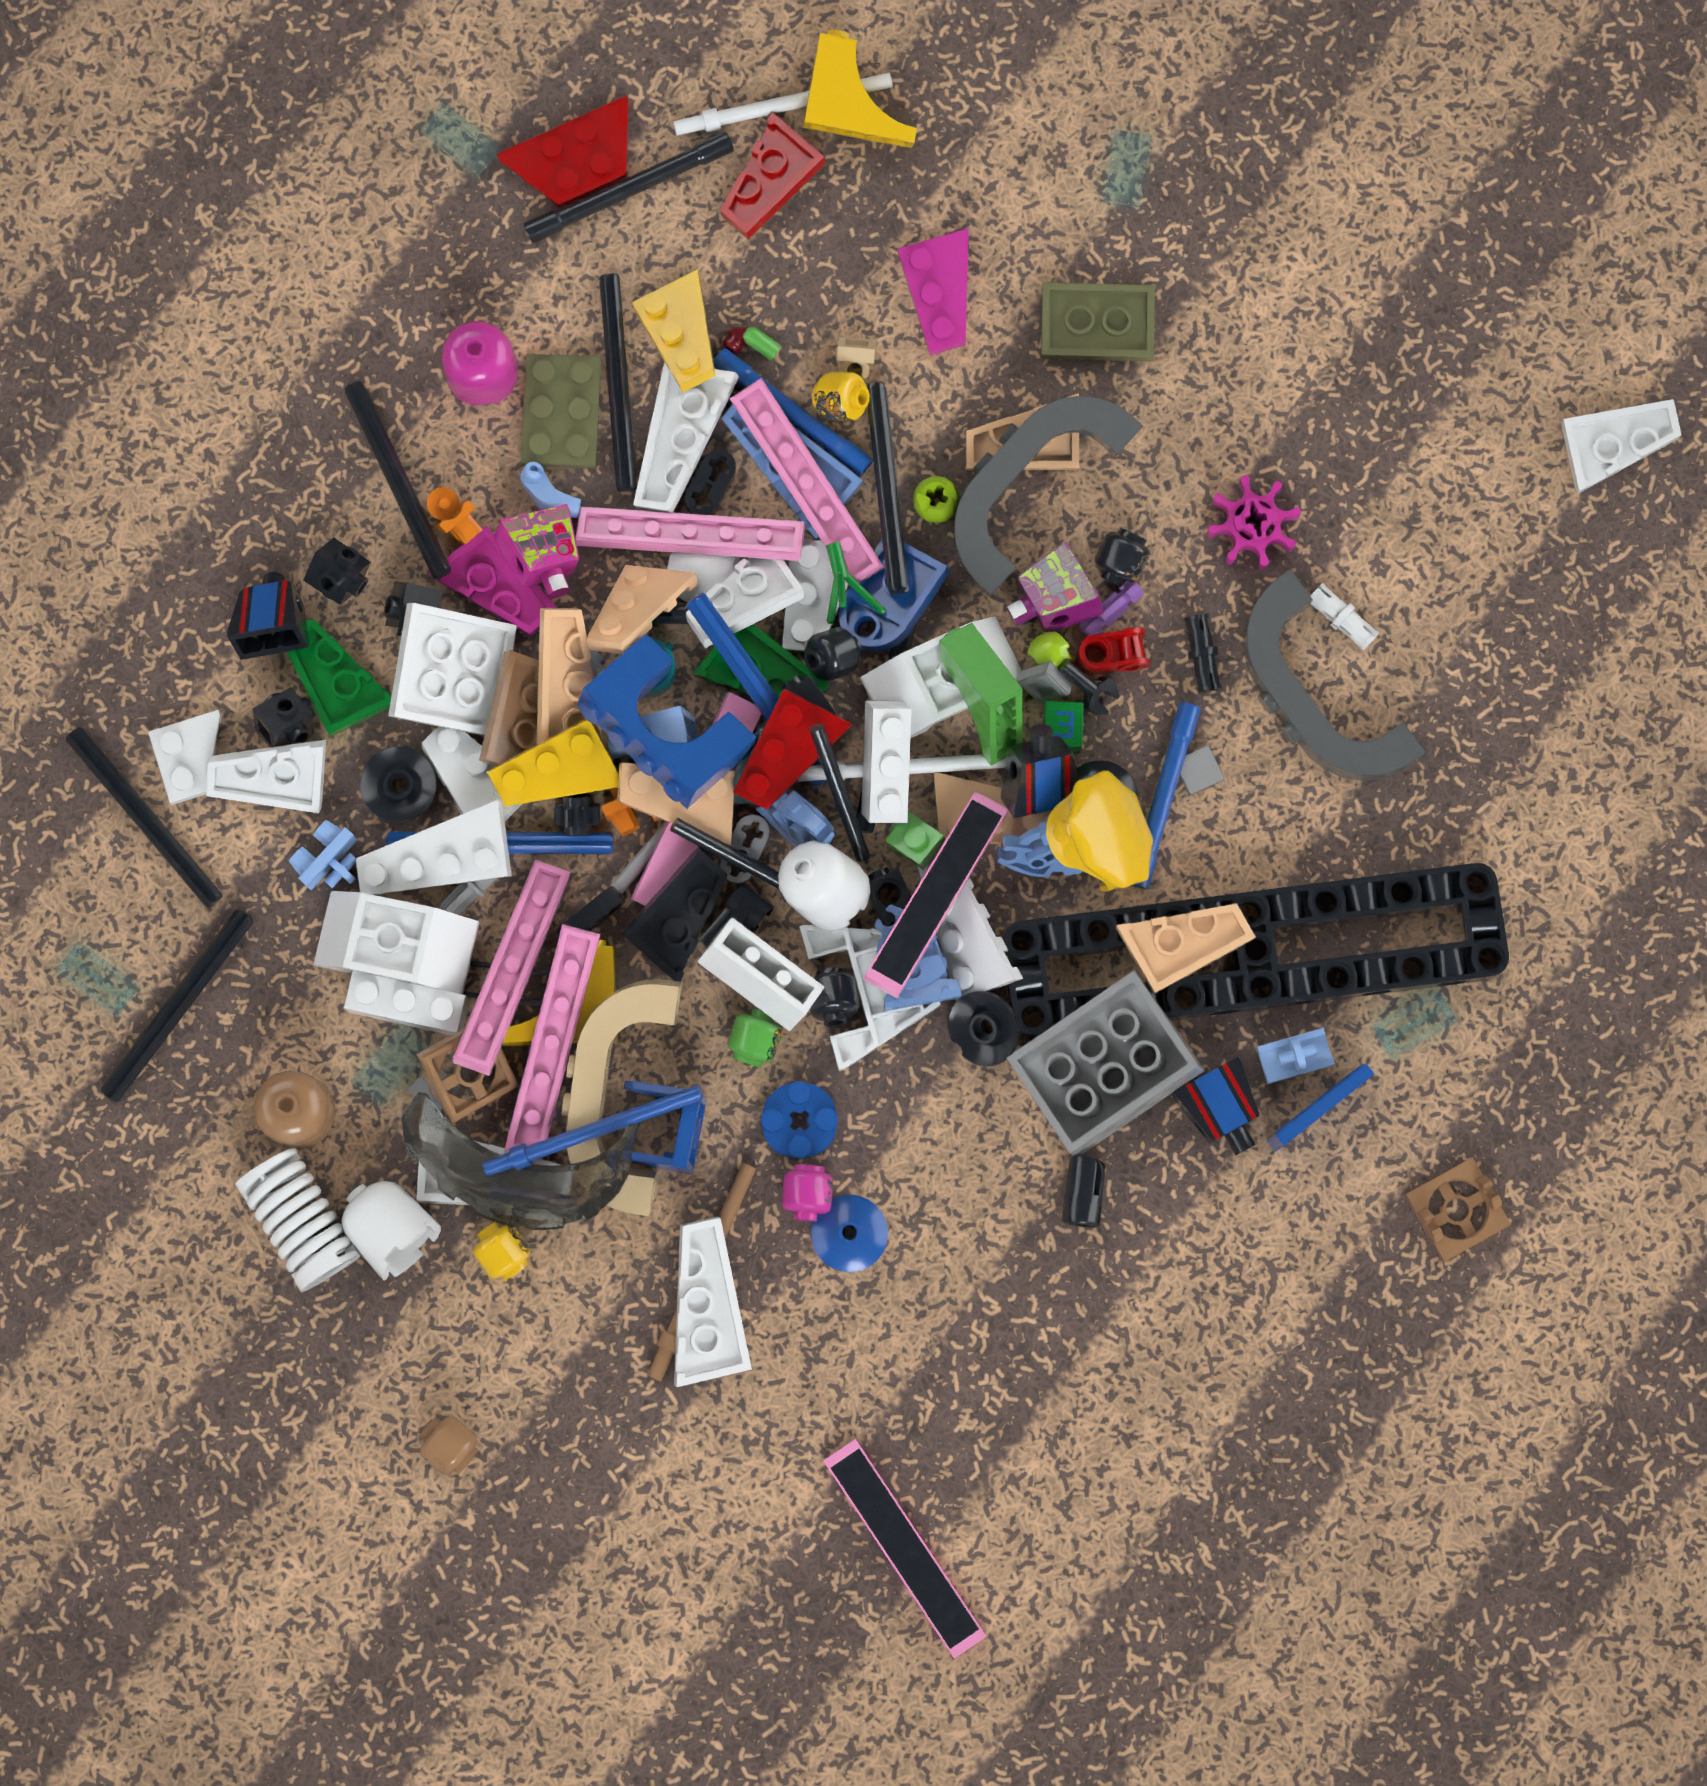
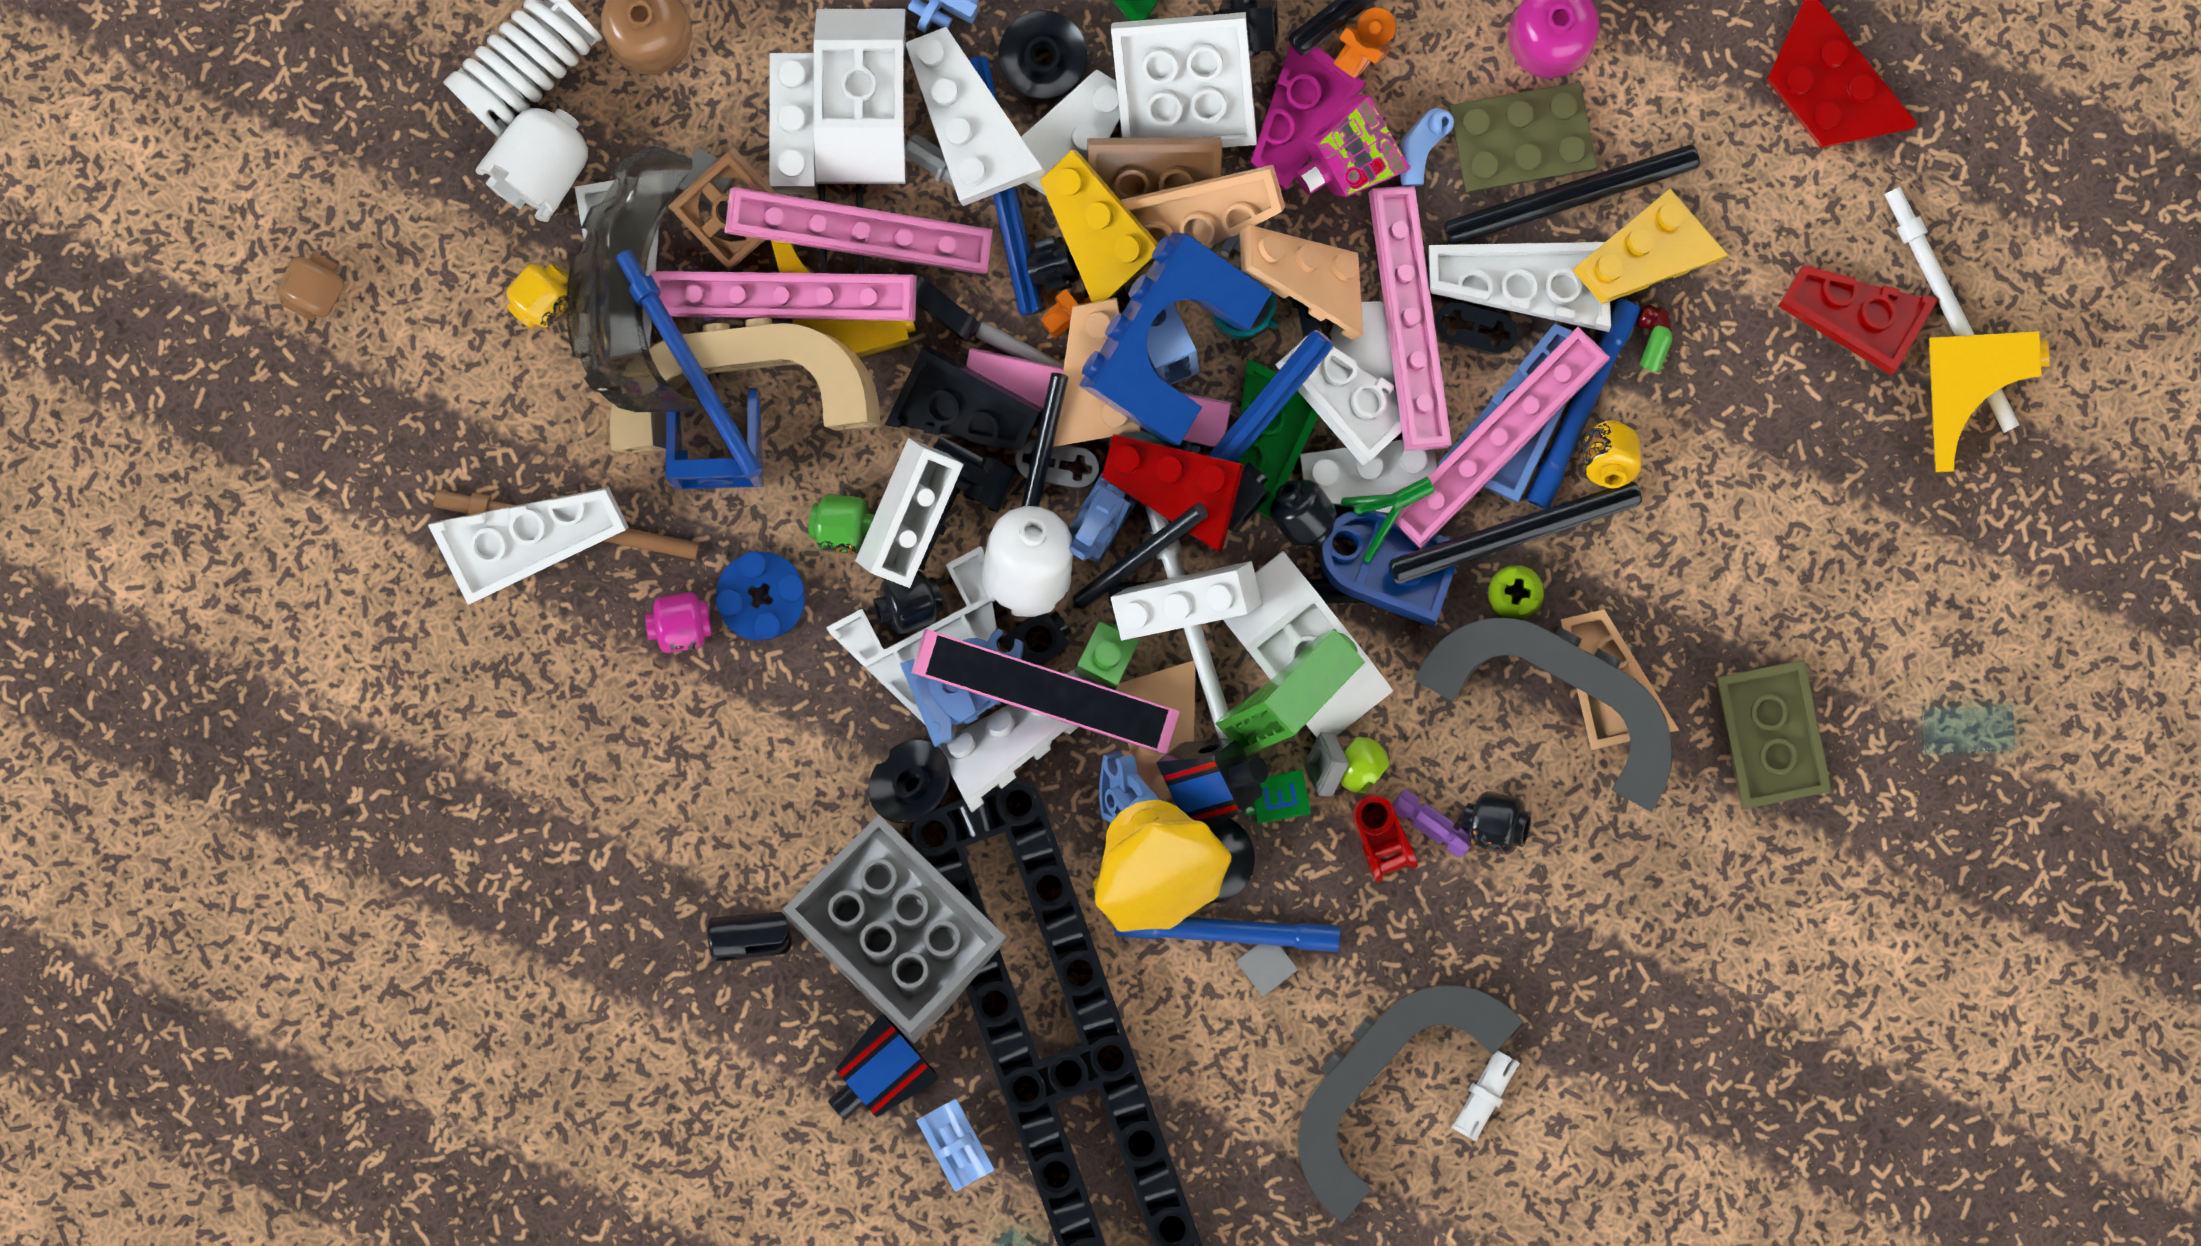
camera: 80 degrees right, 5 degrees up
(390, 1066) = (722, 122): clear light blue tile -> none
(700, 154) = (1867, 227): black piece -> none
(855, 1253) = (649, 705): blue dish -> none
(856, 351) = (1671, 461): tan tile -> none
(904, 1548) = (307, 820): black tile -> none
(938, 287) = (1773, 540): dark pink wing -> none
(1056, 593) = (1434, 754): torso -> none
(1091, 688) = (1332, 819): black bar -> none
(1181, 944) = (1052, 988): light nougat wing -> none
(1202, 653) = (1404, 940): black pin -> none
(1243, 534) = (1582, 987): dark pink gear -> none
(1320, 1107) = (900, 1184): blue tile -> none

